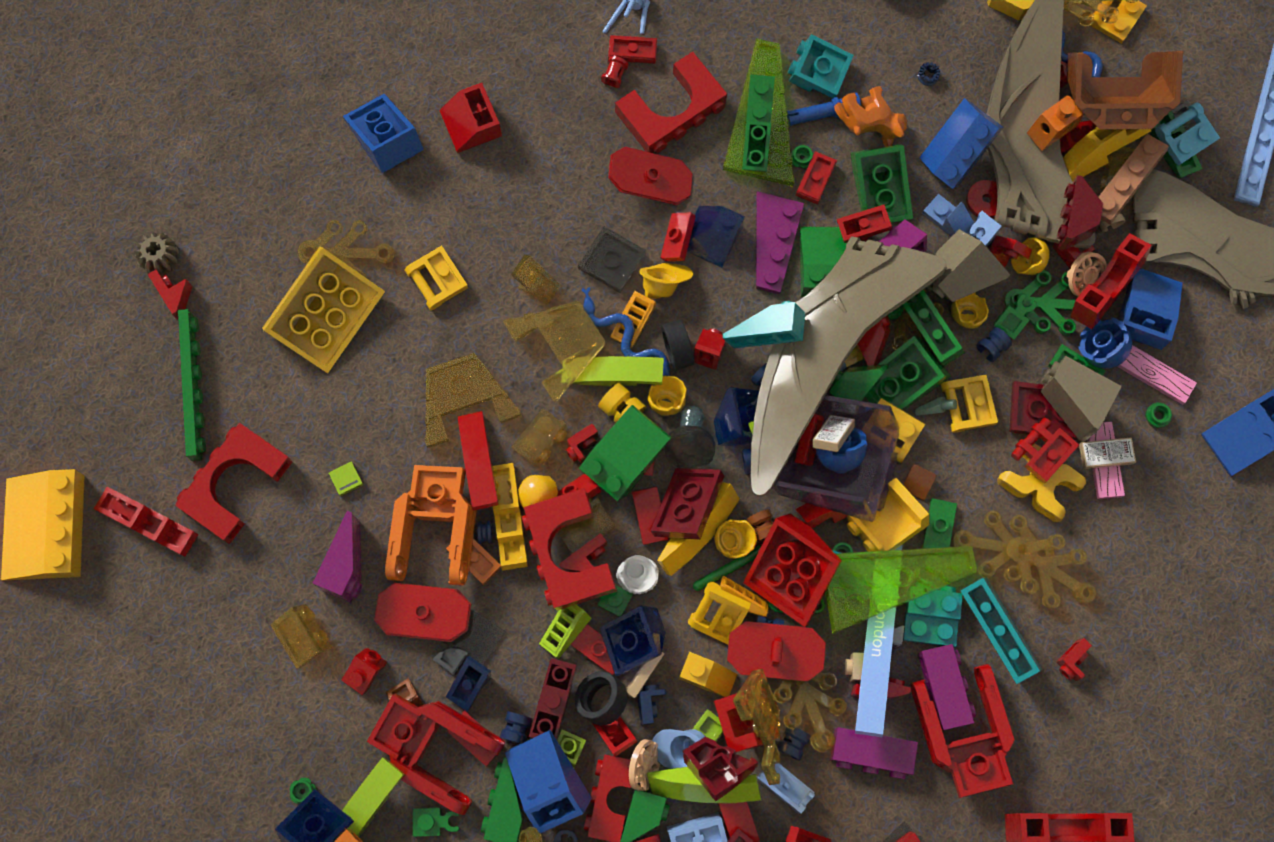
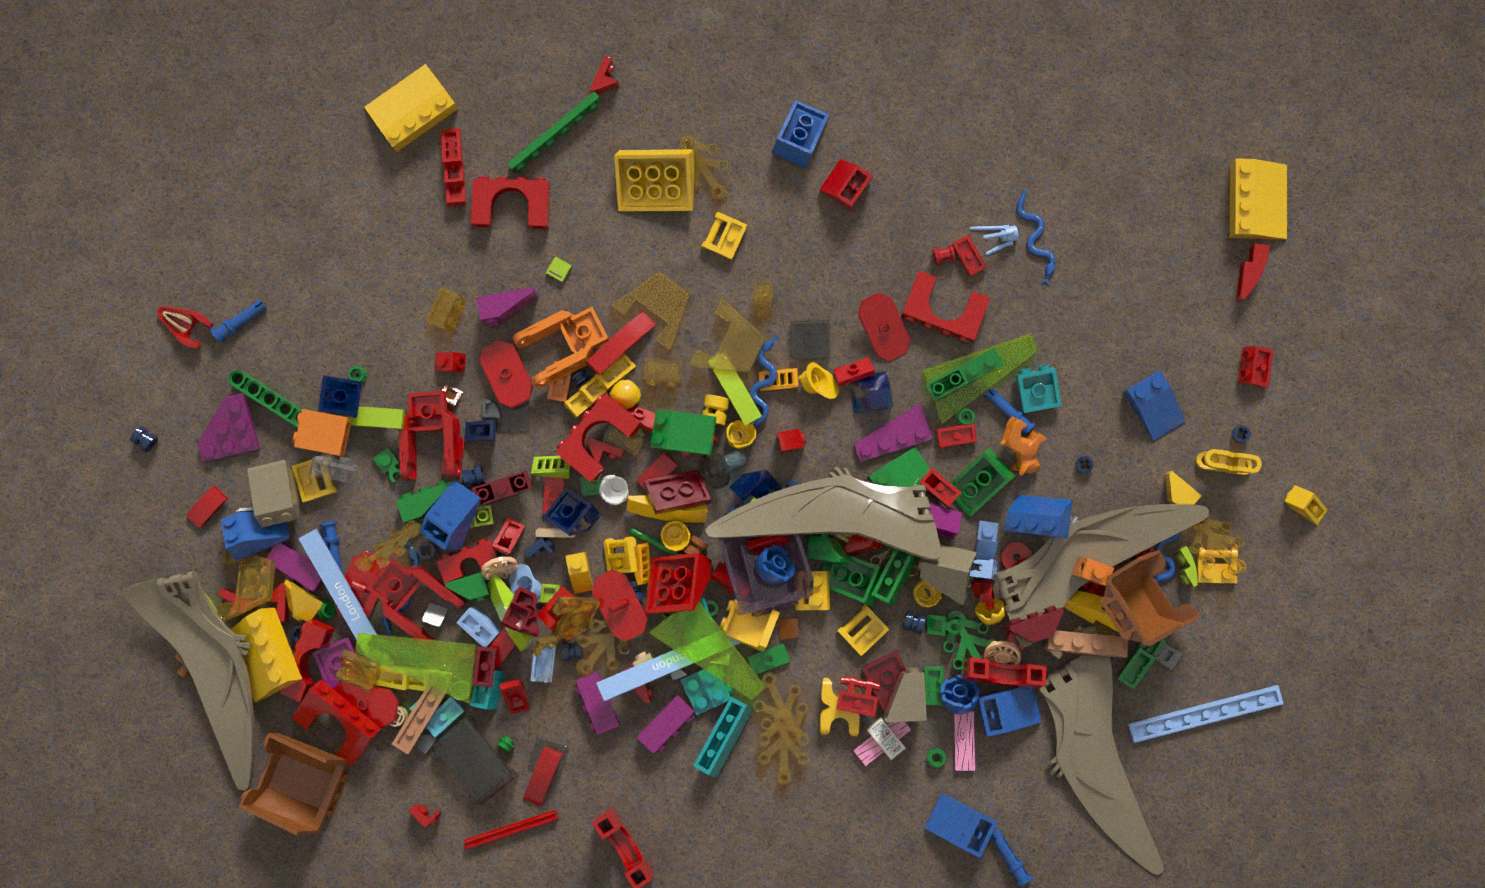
camera: 60 degrees right, 10 degrees up
(151, 258) = (623, 55): dark tan gear -> none
(584, 439) = (679, 400): red bracket -> none
(612, 709) = (519, 505): black tyre -> none
(677, 344) = (777, 419): black tyre -> none
(771, 326) = (824, 471): slope -> none
(833, 433) = (779, 555): tile -> none
(936, 406) = (847, 610): sand green bar -> none
(976, 761) = (630, 769): red plate -> none
(1075, 654) = (738, 792): red bracket -> none
(1107, 40) = (1189, 573): none -> lime slope
(1192, 140) = (1146, 670): medium azure plate -> none

